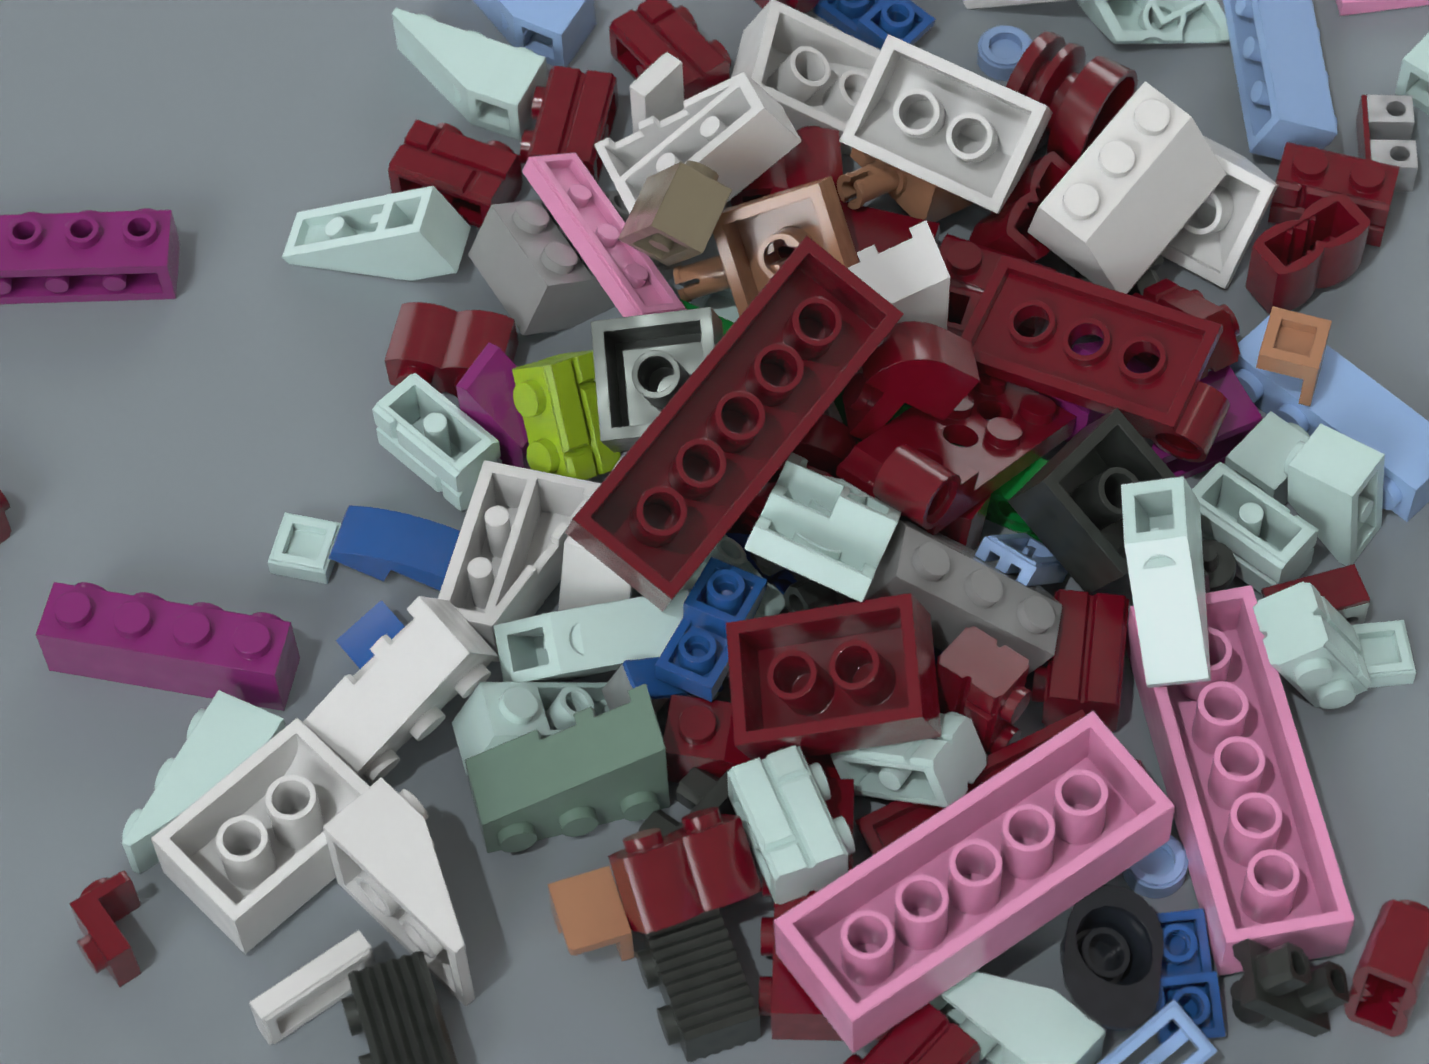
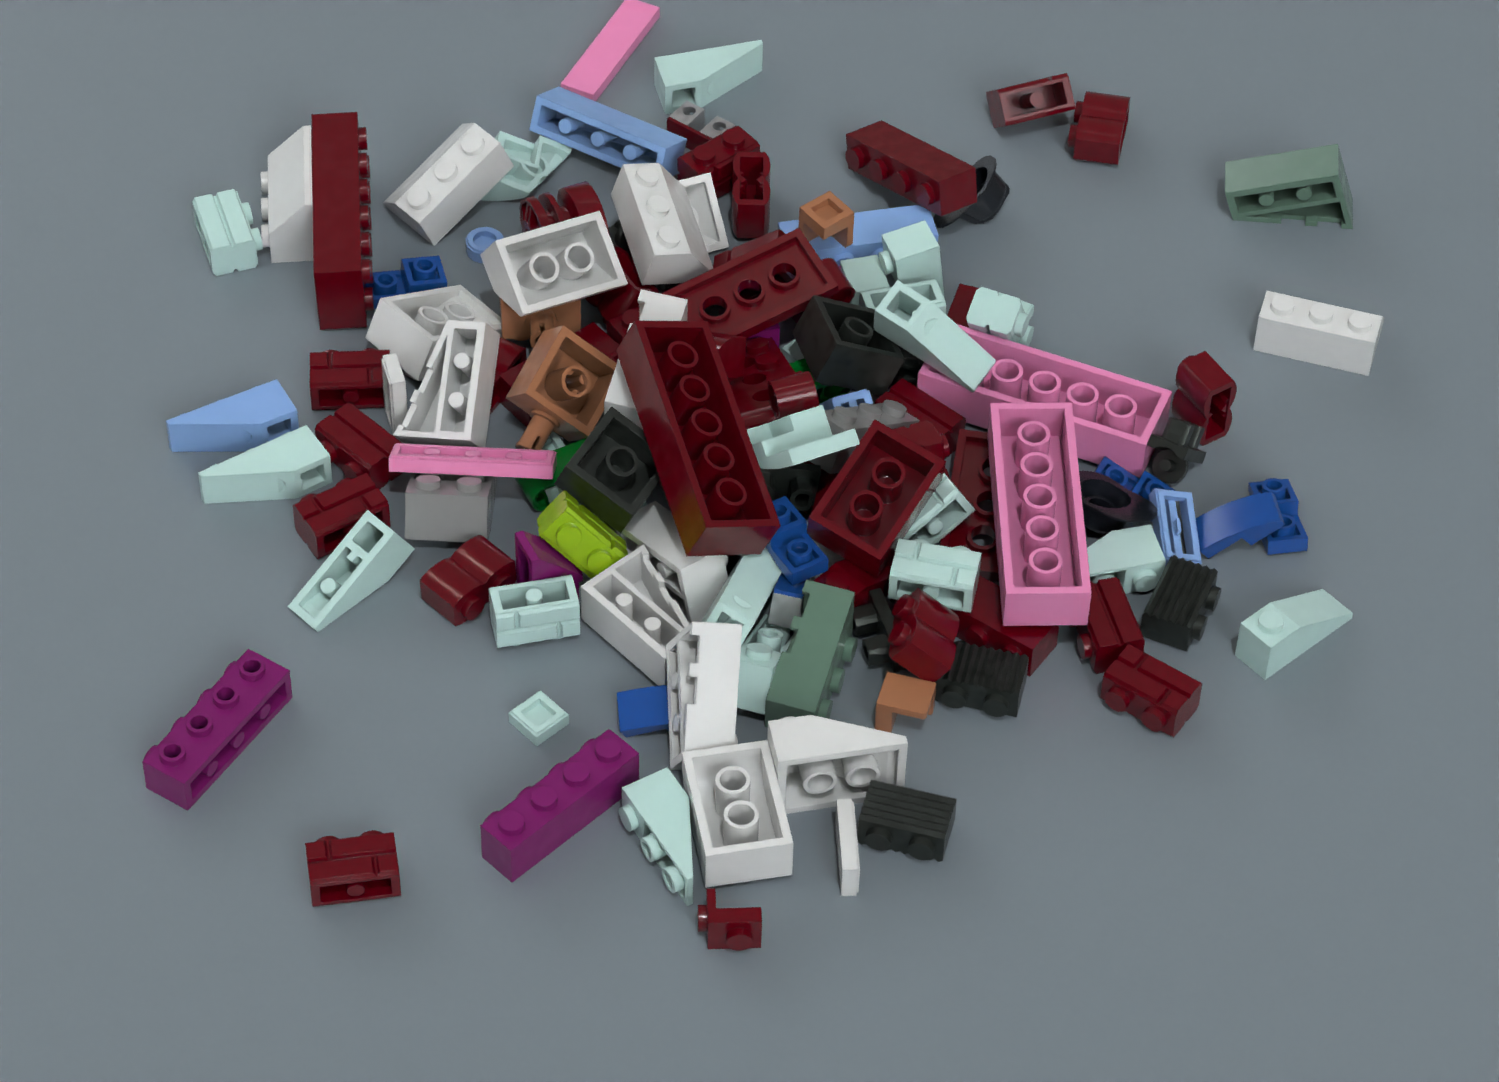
camera: 60 degrees left, 10 degrees down
(396, 541) = (578, 670): blue slope -> none
(676, 212) = (510, 404): dark tan brick -> none

